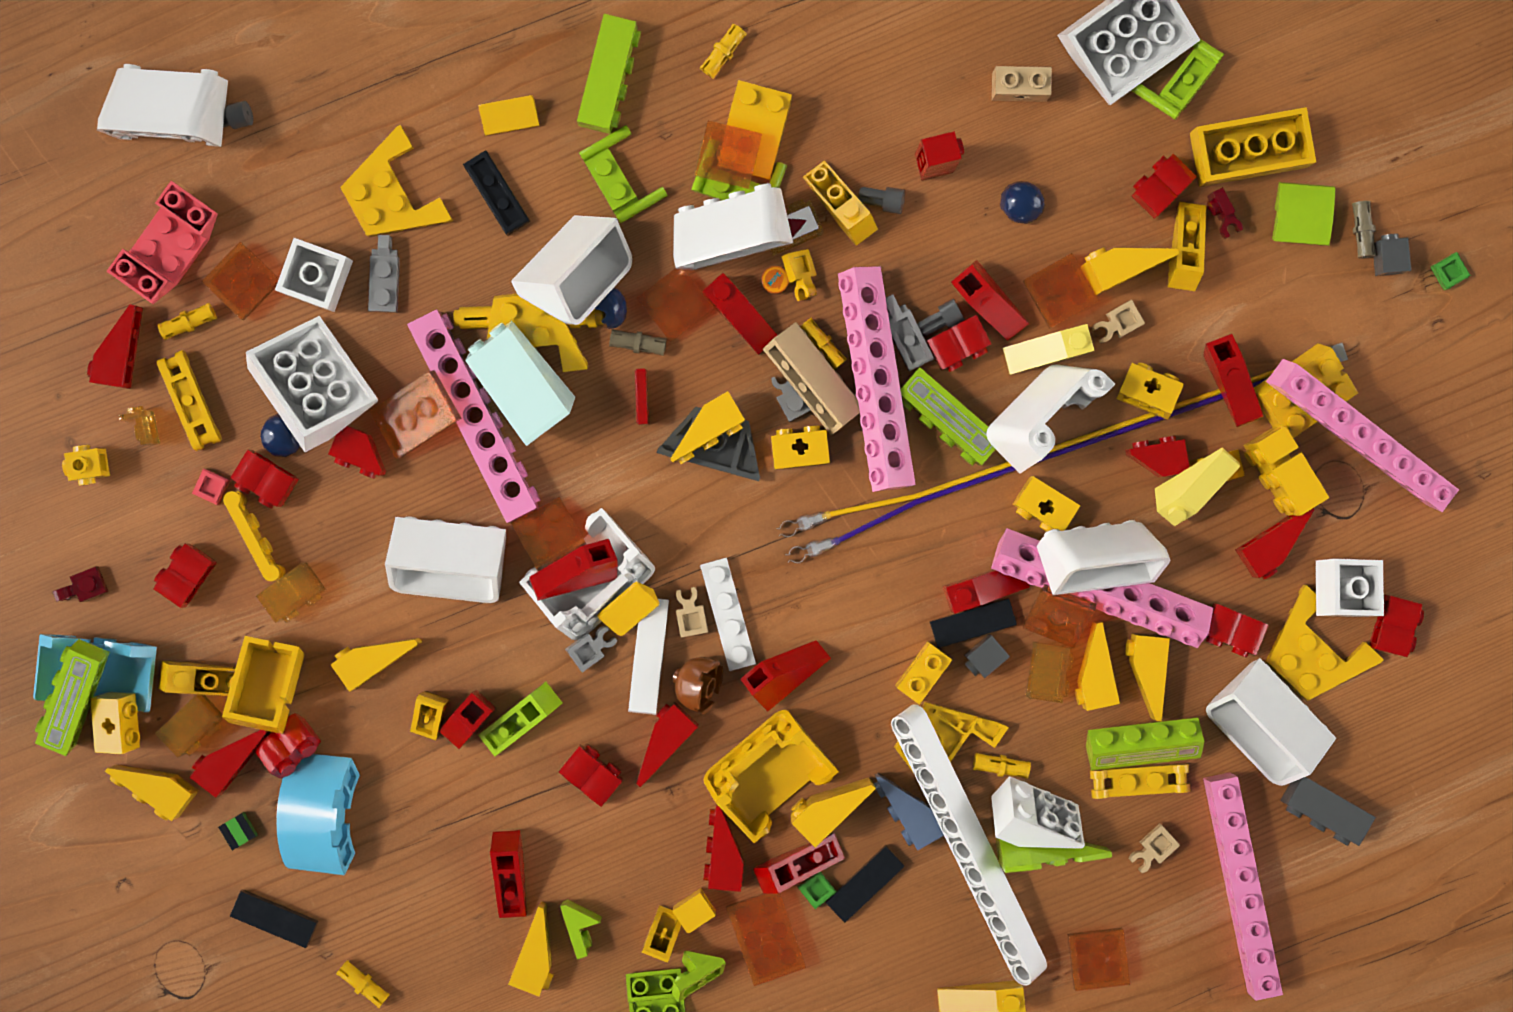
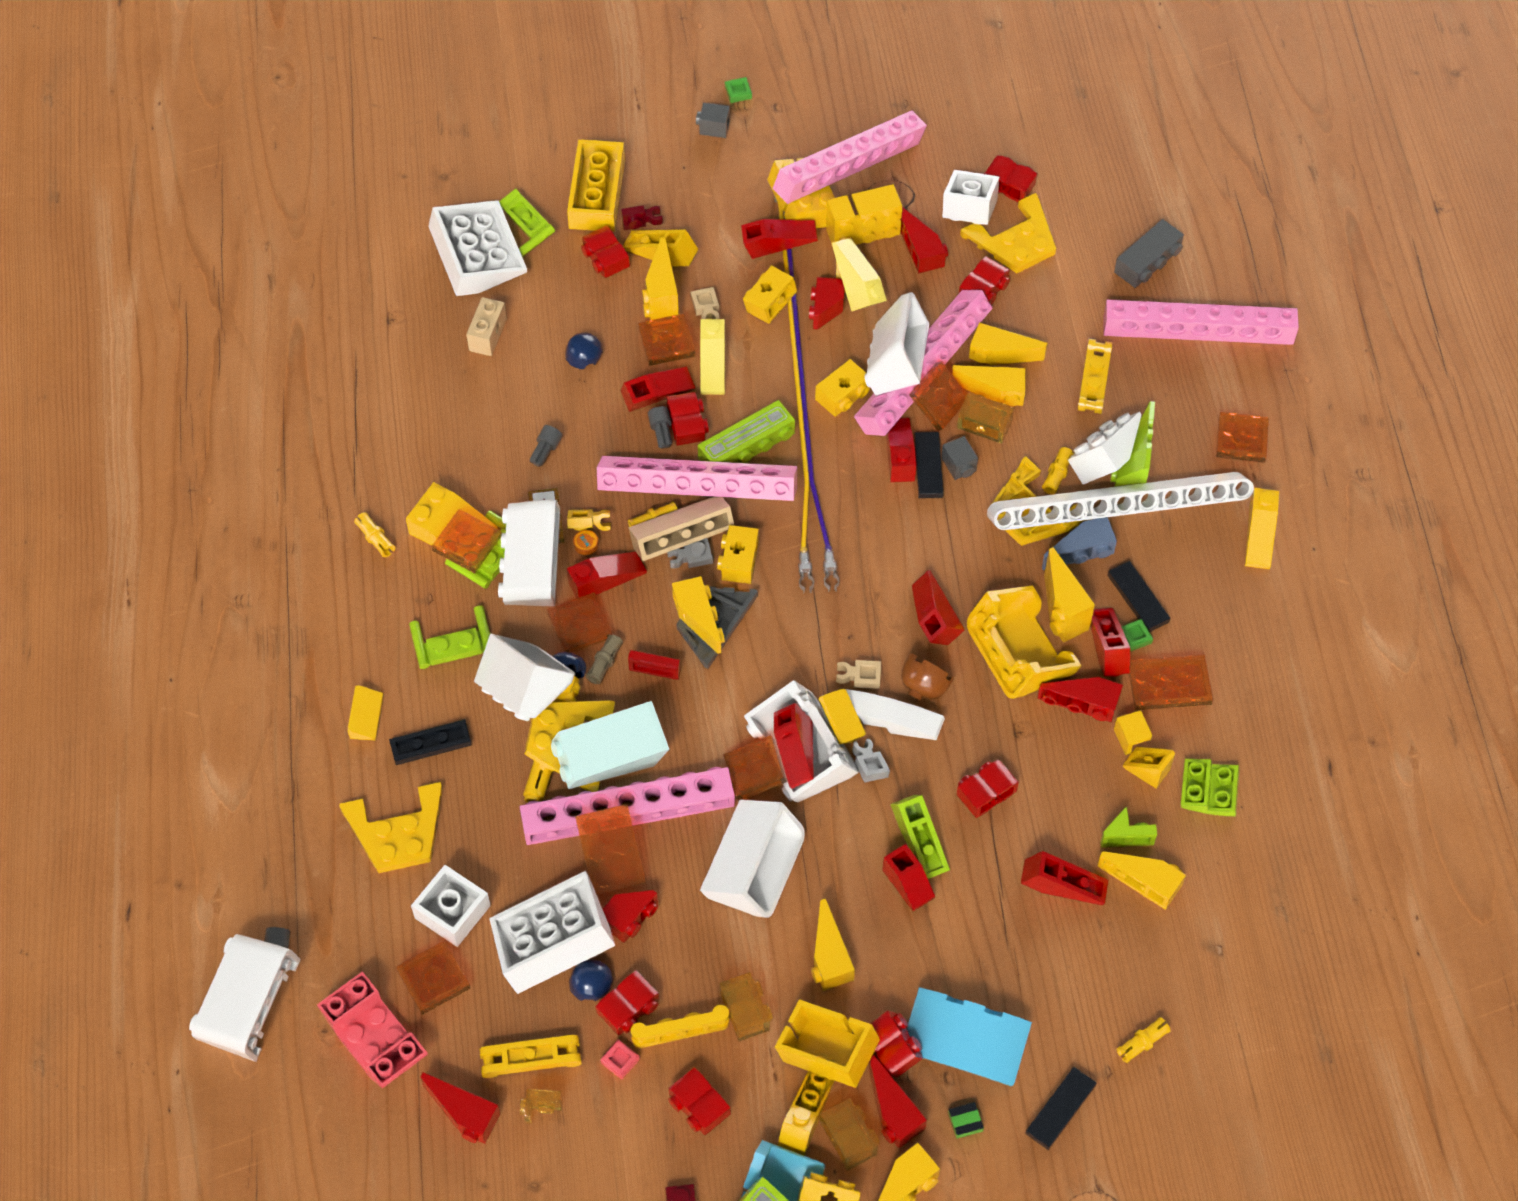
camera: 80 degrees left, 30 degrees down
(85, 464) = (562, 1164): yellow brick -> none
(187, 321) = (453, 1038): yellow pin -> none
(384, 277) = (472, 854): light grey hinge -> none
(429, 714) = (895, 912): yellow slope -> none
(607, 74) = (360, 624): lime brick -> none
(667, 736) = (969, 720): red slope -> none
(701, 970) = (1188, 741): lime slope -> none
(728, 614) = (868, 647): white plate -> none
(841, 203) = (543, 472): yellow slope -> none
(907, 335) = (673, 450): light grey hinge -> none
(923, 672) = (961, 506): yellow brick -> none
(939, 155) = (525, 386): red brick -> none
(1021, 428) = (768, 370): white windscreen -> none
(1144, 743) = (1063, 361): lime brick -> none
(1157, 845) = (1154, 375): tan plate -> none
(1270, 724) = (1070, 275): white windscreen -> none
(1304, 213) = (660, 167): lime slope -> none
(1364, 229) = (687, 133): dark tan pin -> none

